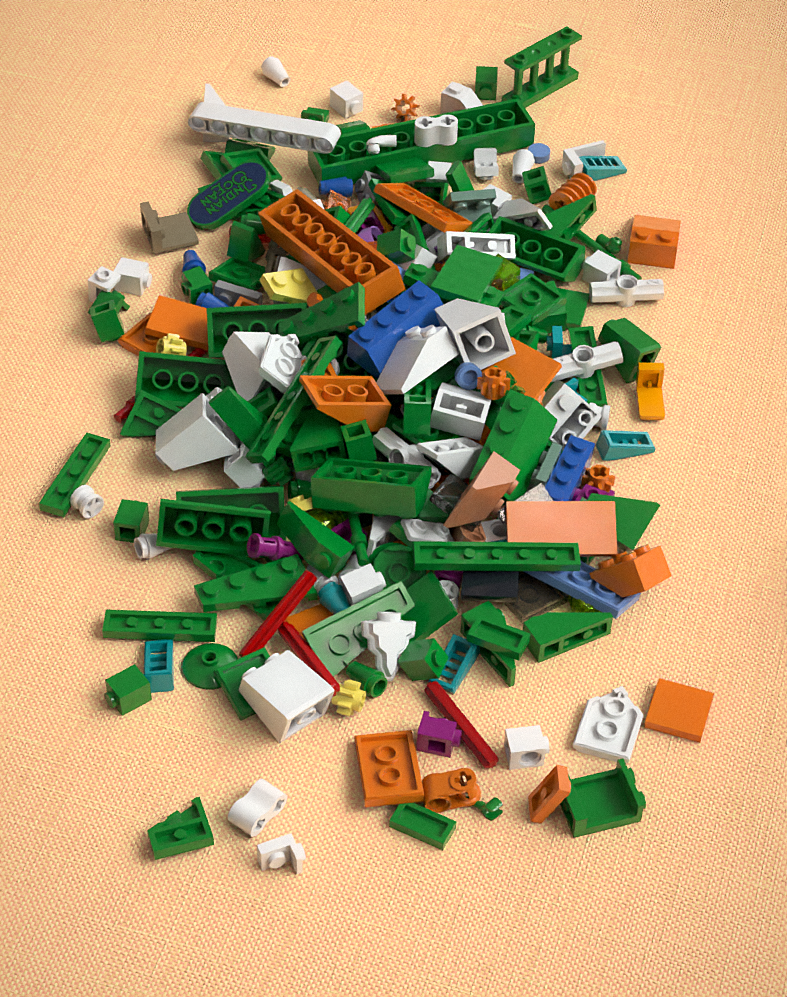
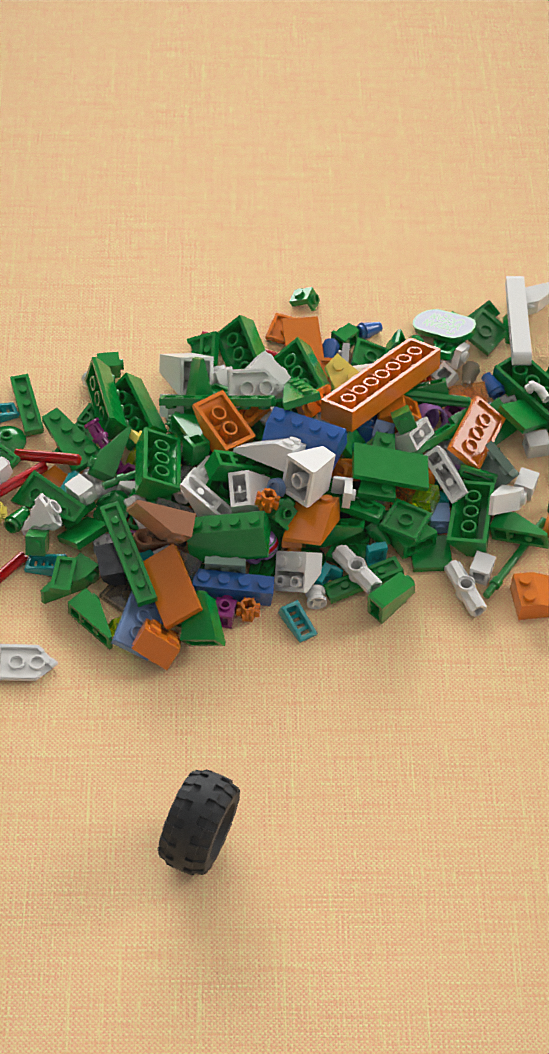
camera: 70 degrees right, 5 degrees up
(74, 474) = (140, 327): green plate -> none
(87, 501) = (117, 339): white wheel -> none
(103, 280) = (320, 285): white bracket -> none
(107, 321) = (283, 299): green brick -> none
(134, 276) = (339, 300): white brick -> none
(168, 231) = (395, 305): dark tan bracket -> none
(171, 345) = (271, 339): light yellow gear -> none
(434, 190) = (514, 446): green slope -> none
(458, 178) = (527, 453): green tile -> none
(612, 244) = (520, 568): green arm -> none
(649, 391) = (356, 626): light orange bracket -> none
(679, 710) = (48, 701): orange tile -> none

